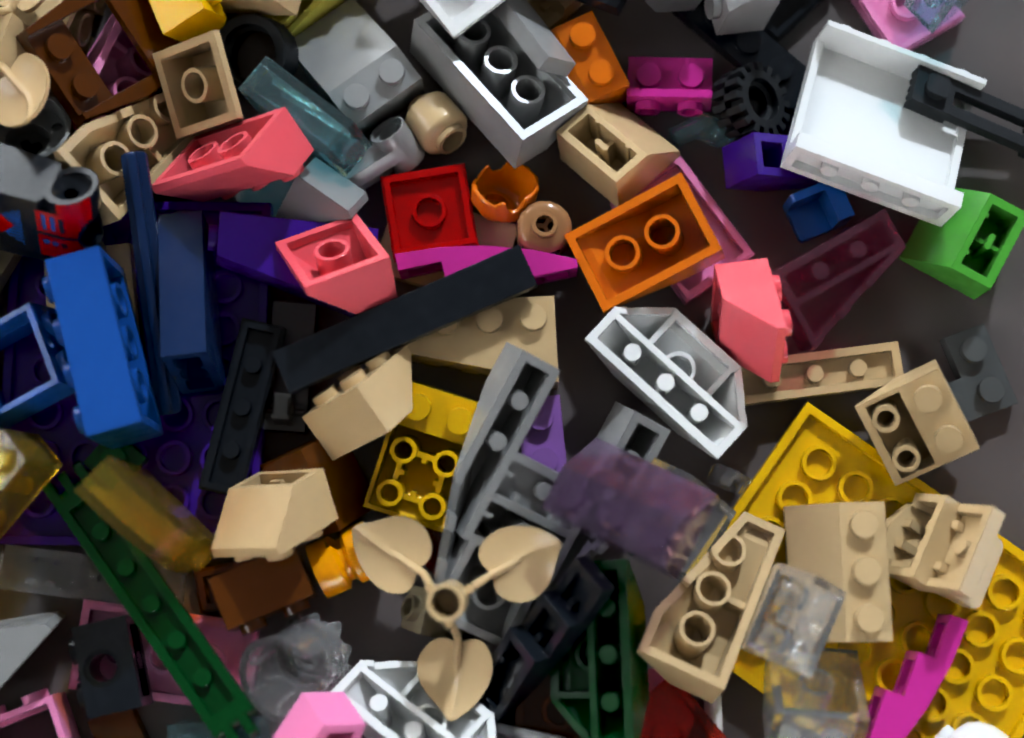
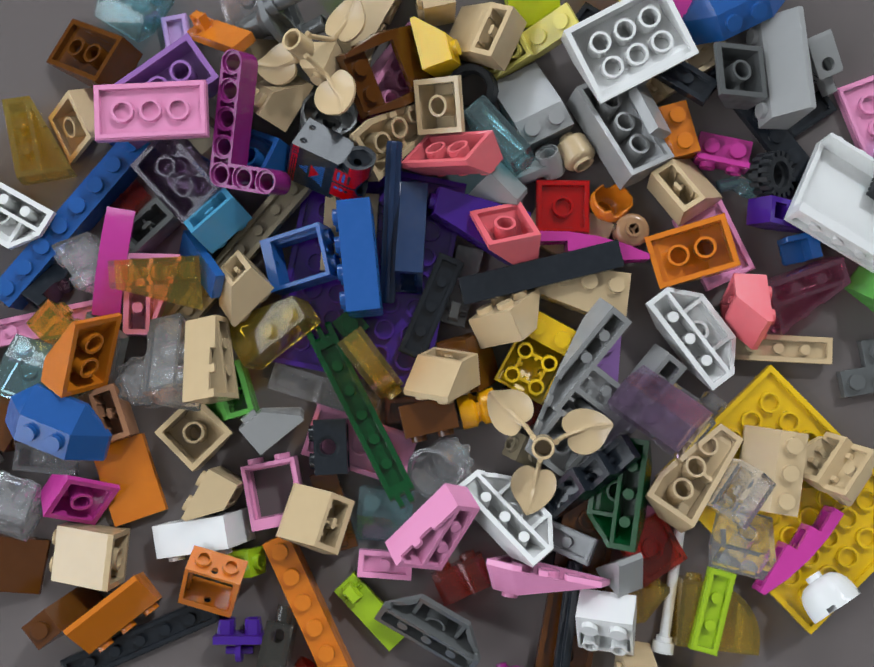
camera: 10 degrees right, 5 degrees up
(916, 423) = (836, 390): tan slope -> none

